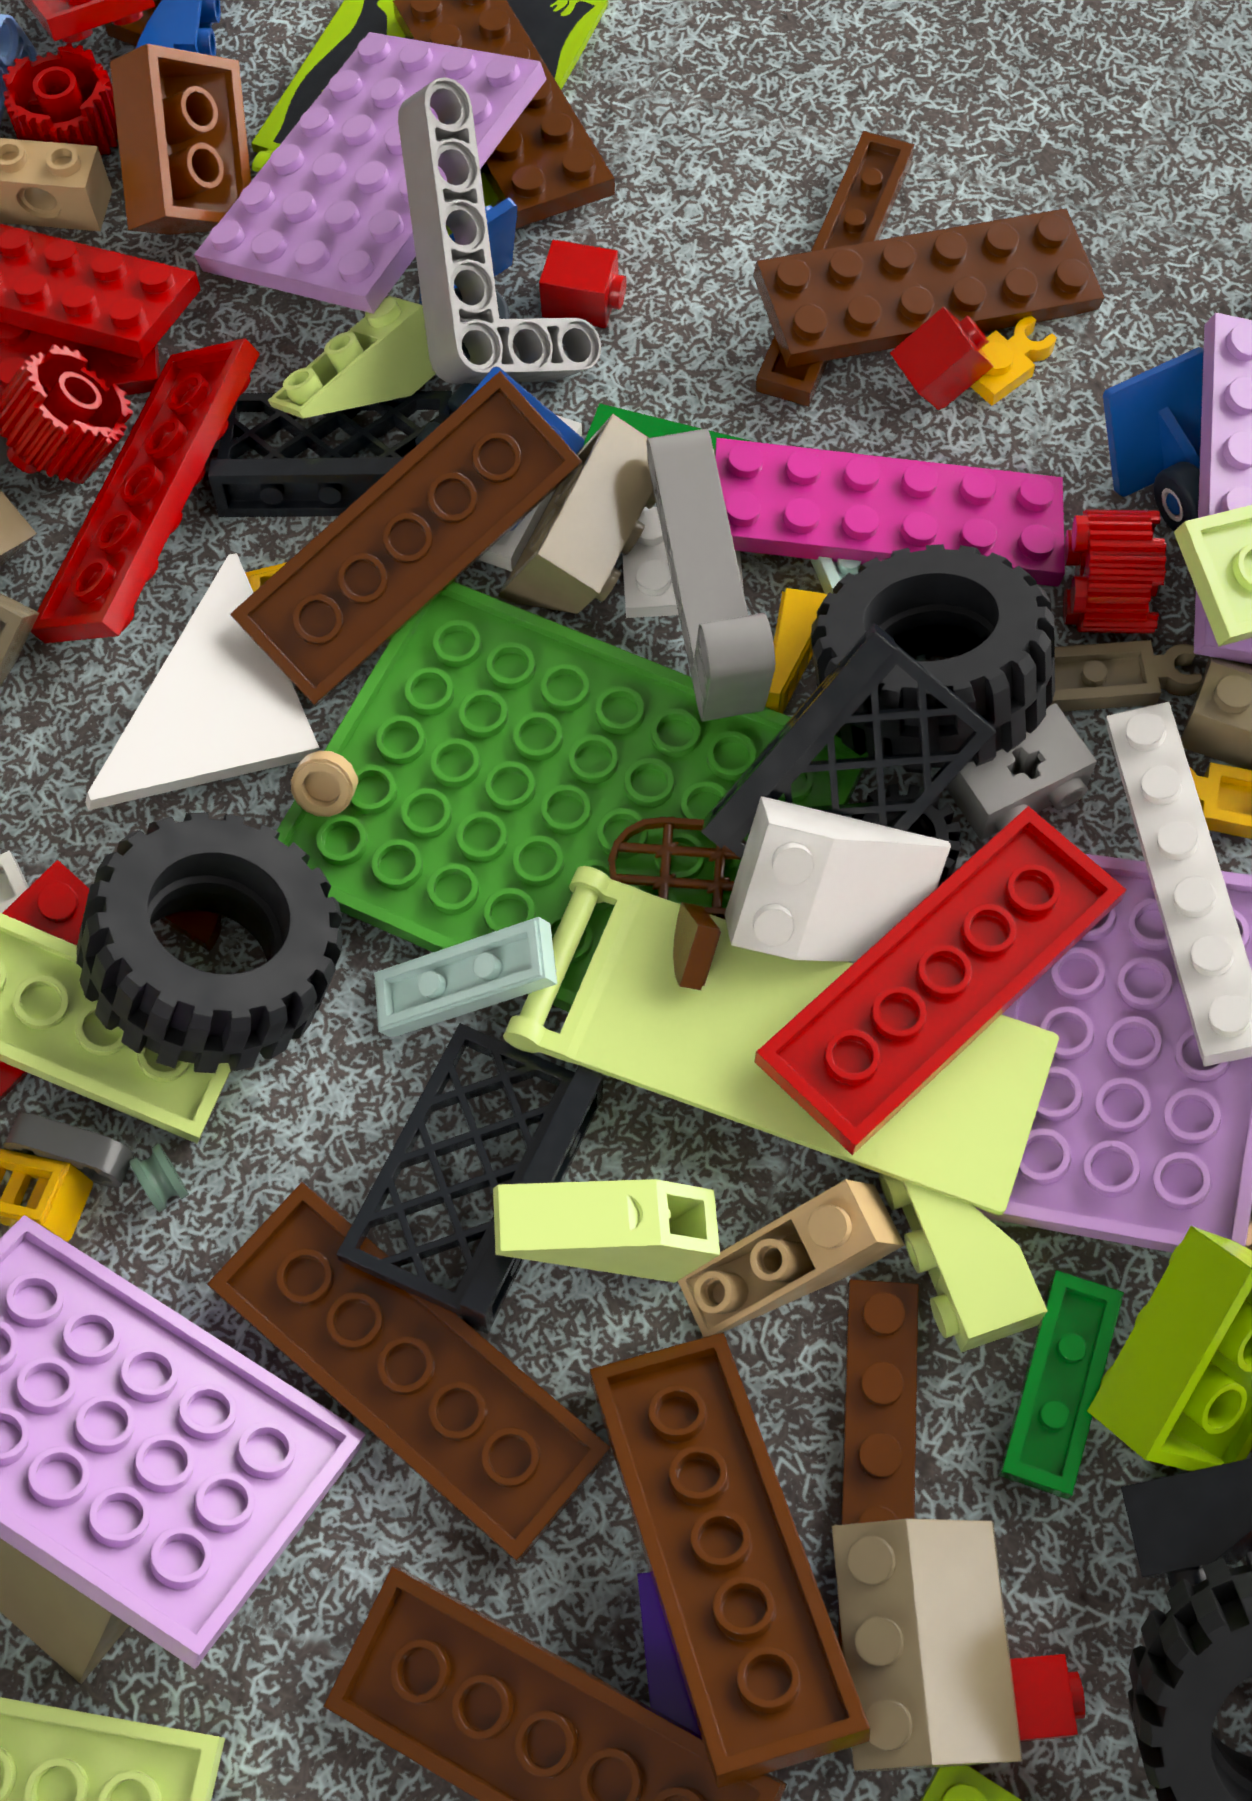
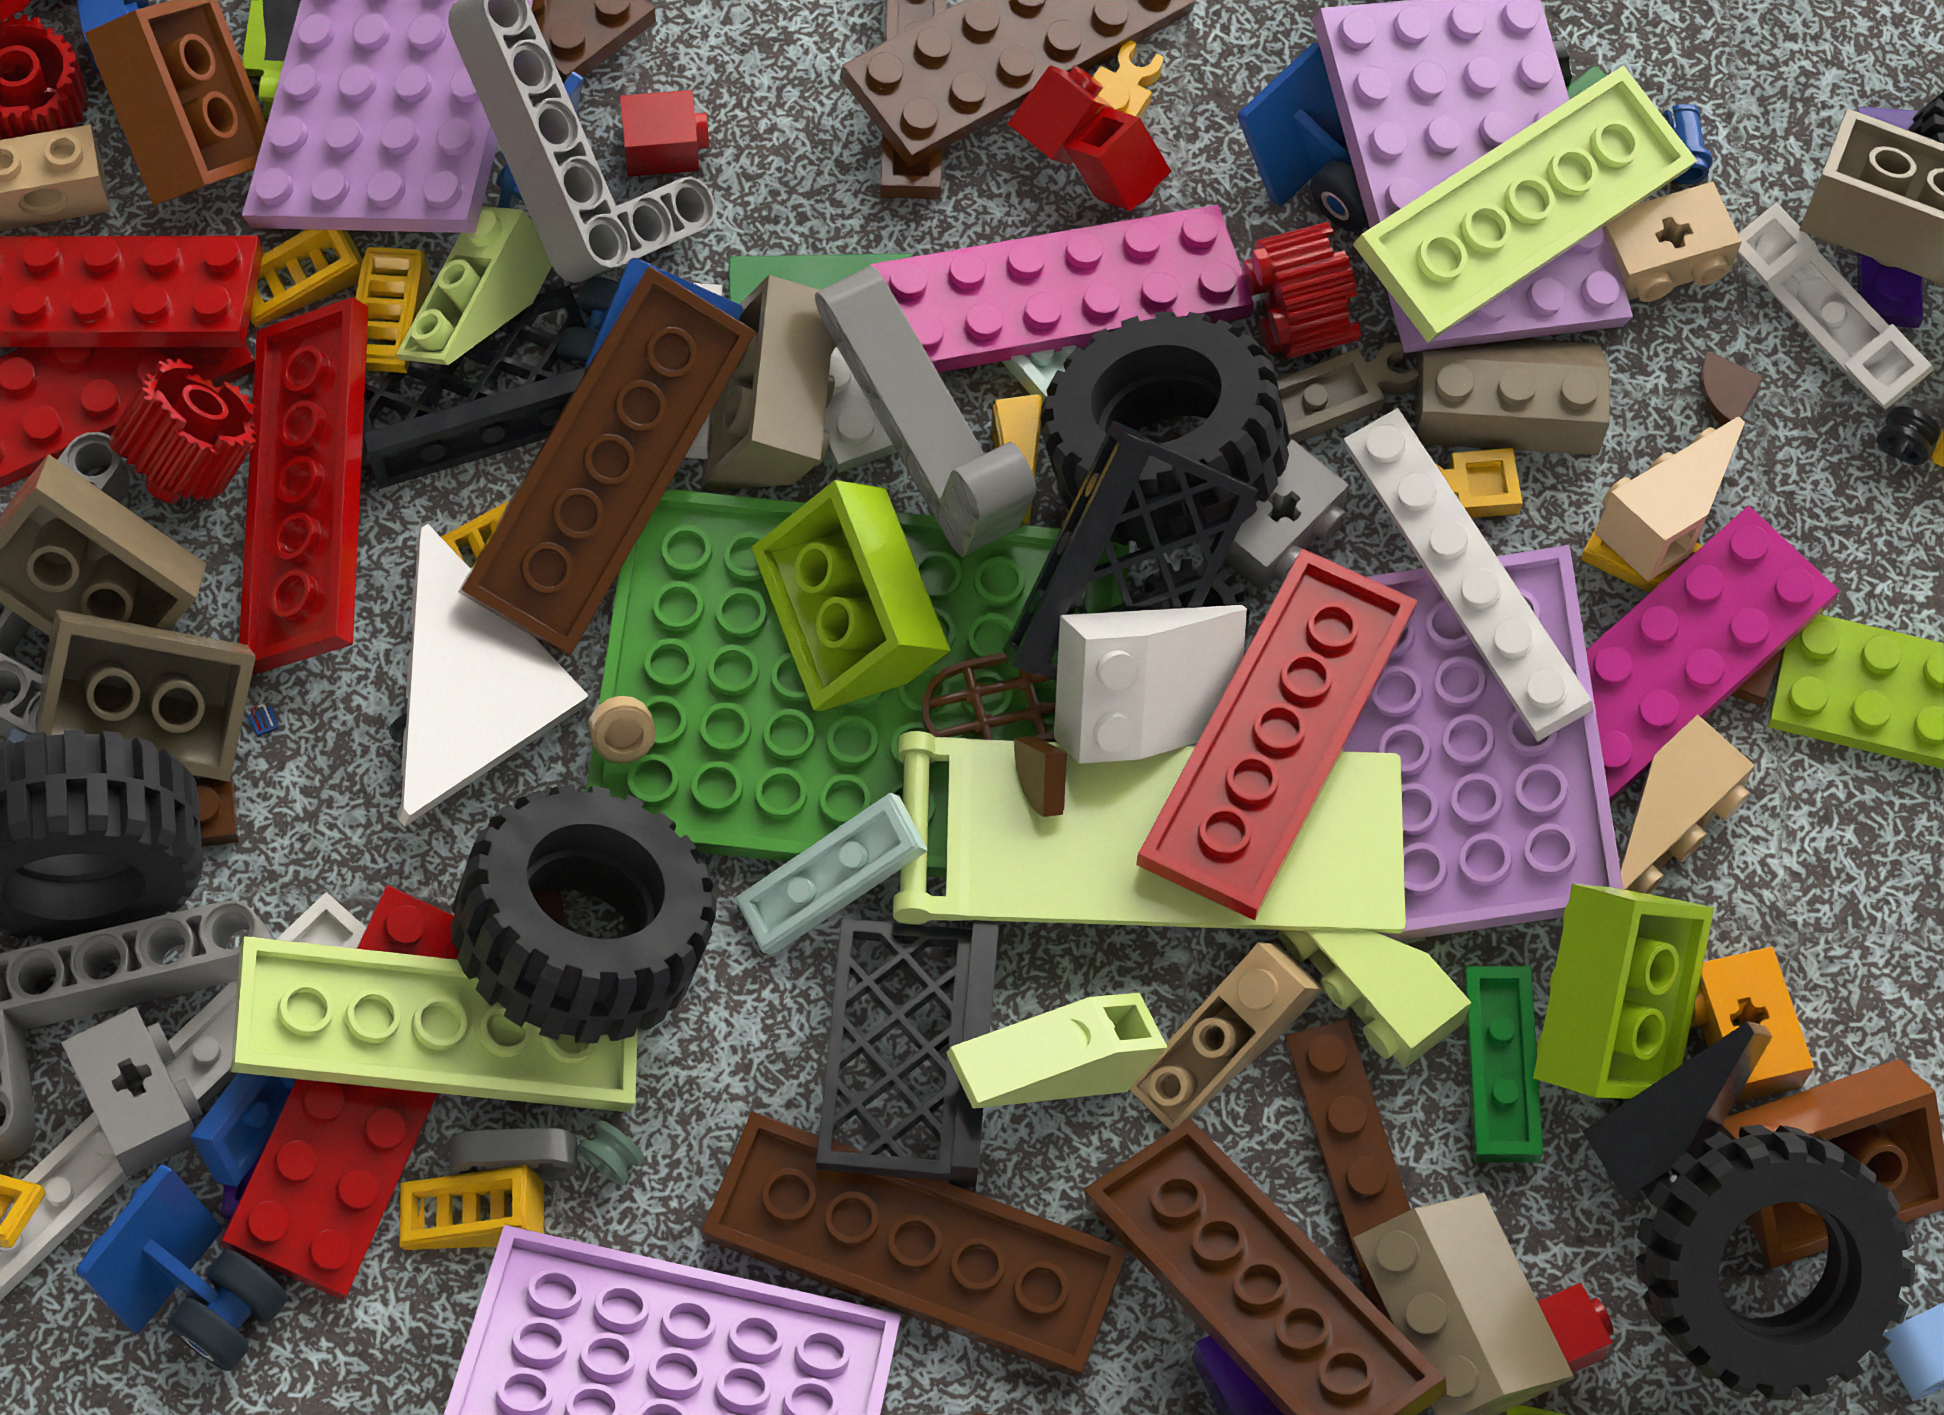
camera: 25 degrees left, 0 degrees up
(34, 685) = (263, 720): none -> blue piece
(258, 328) = (307, 290): none -> yellow slope
(290, 337) = (391, 274): none -> yellow slope
(582, 724) = (849, 595): none -> lime slope
(981, 409) = (1117, 158): none -> red brick

